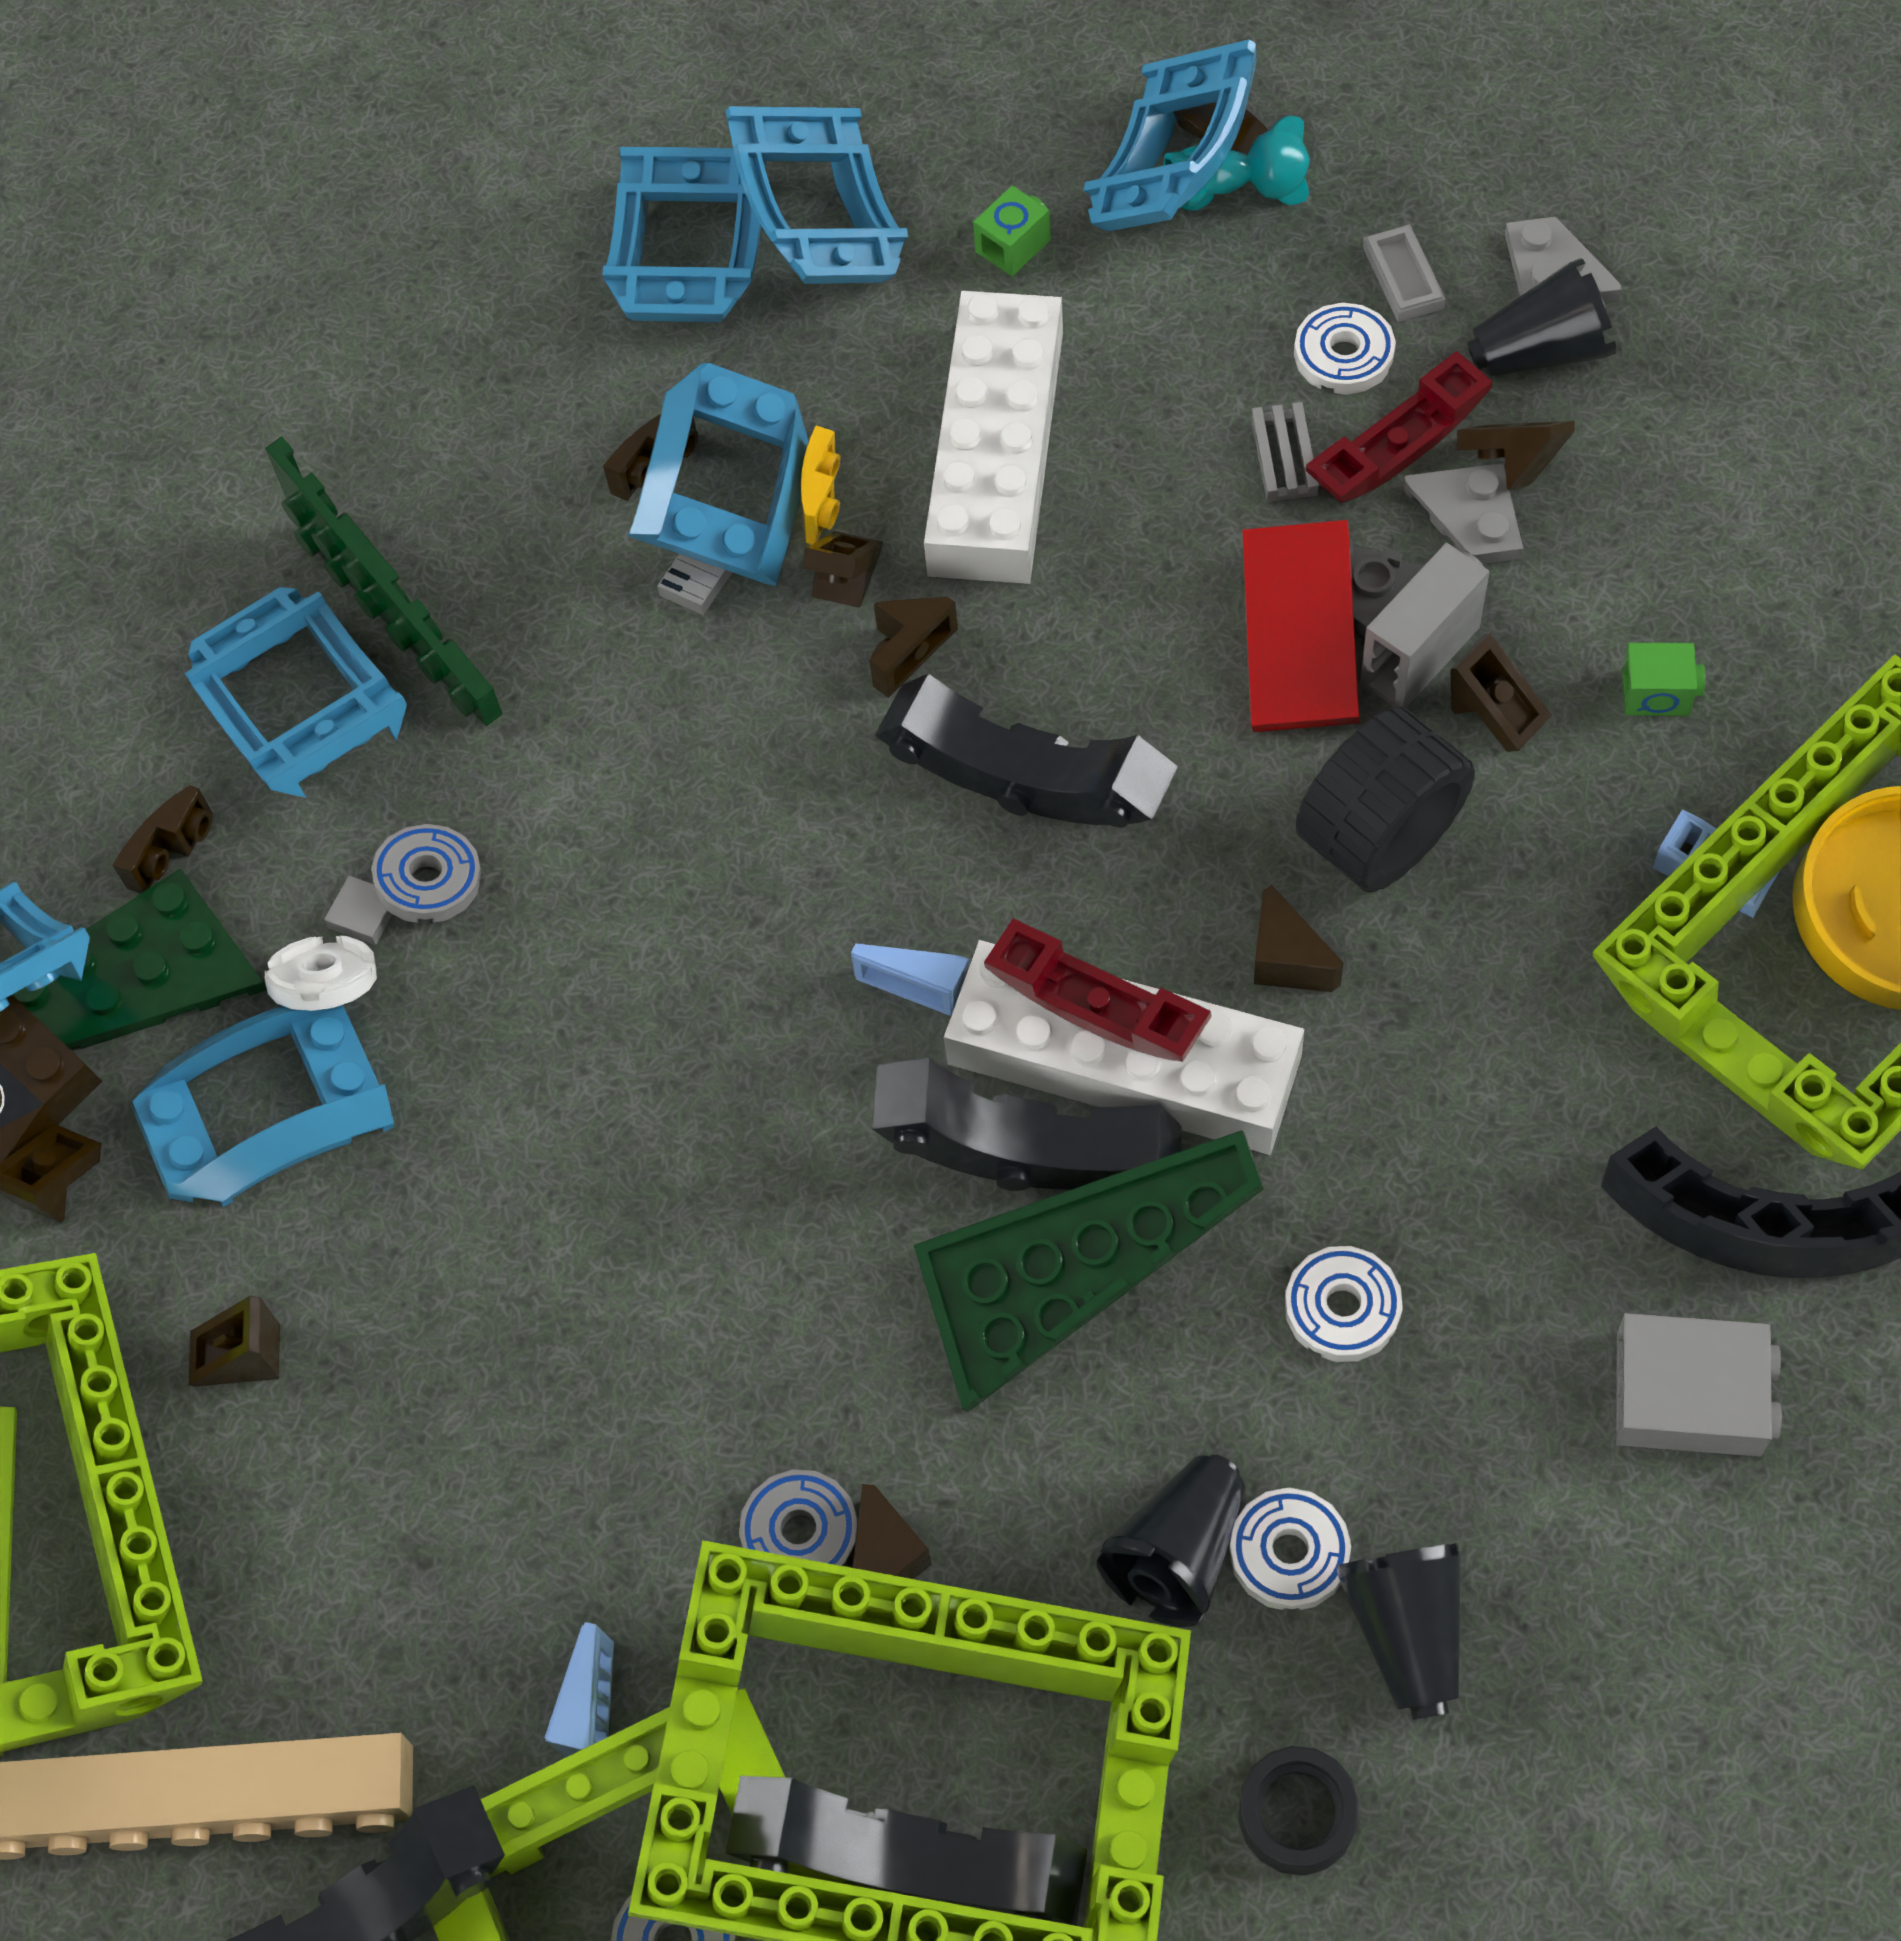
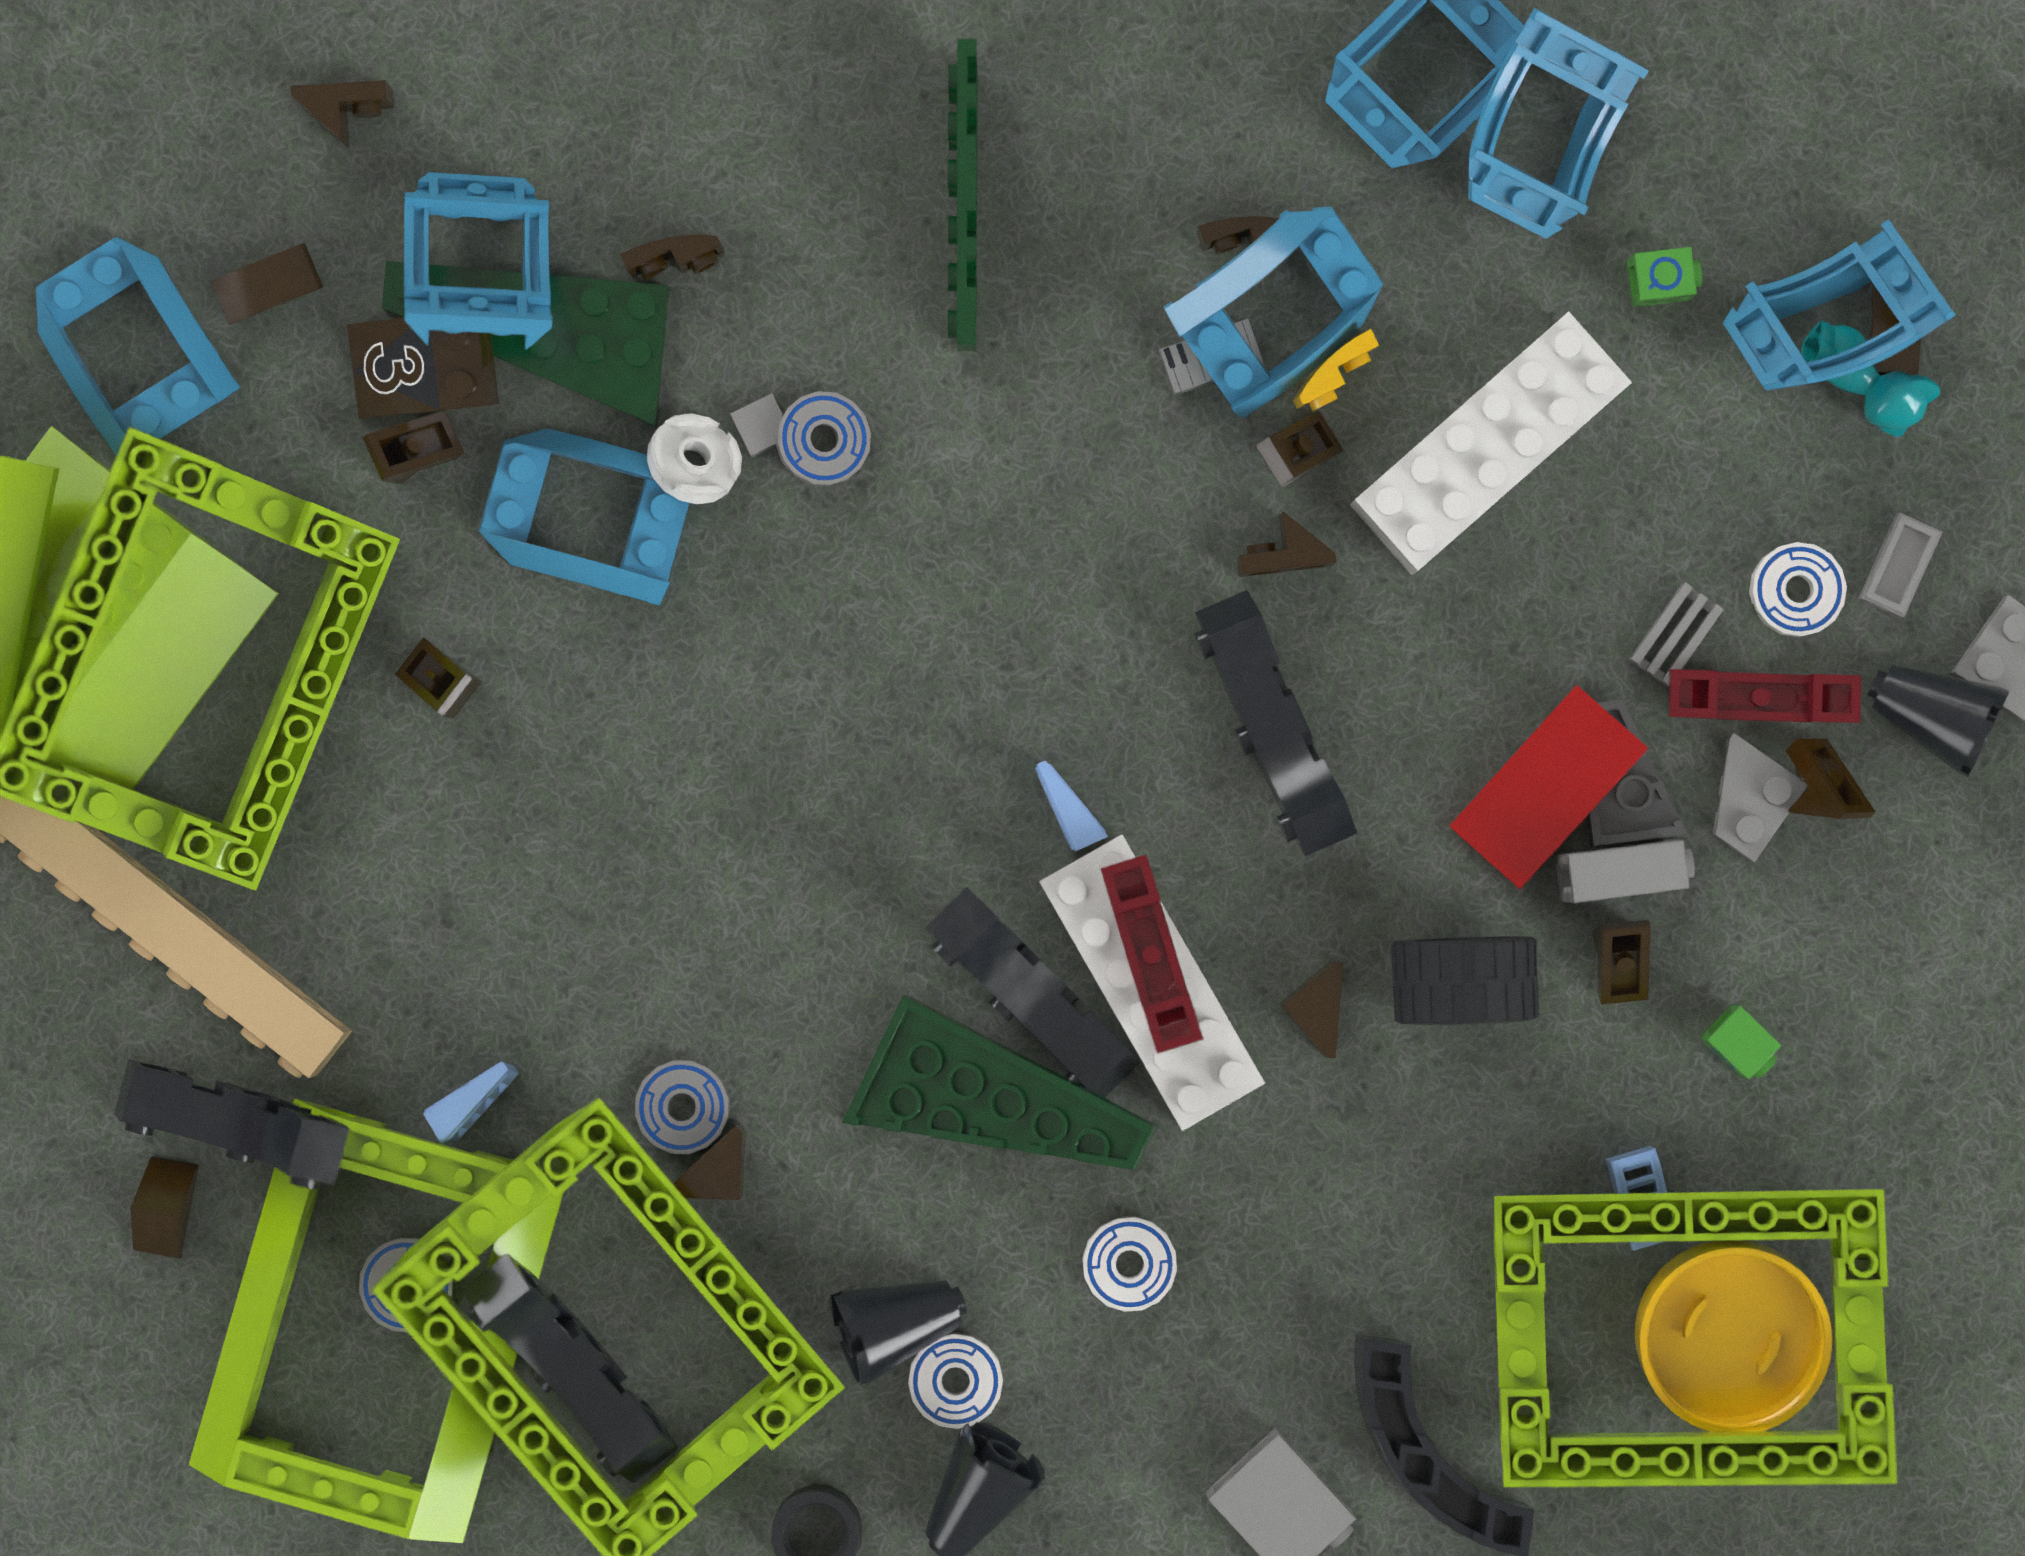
camera: 30 degrees right, 25 degrees up
(324, 735) = (840, 275): dark azure wedge -> none

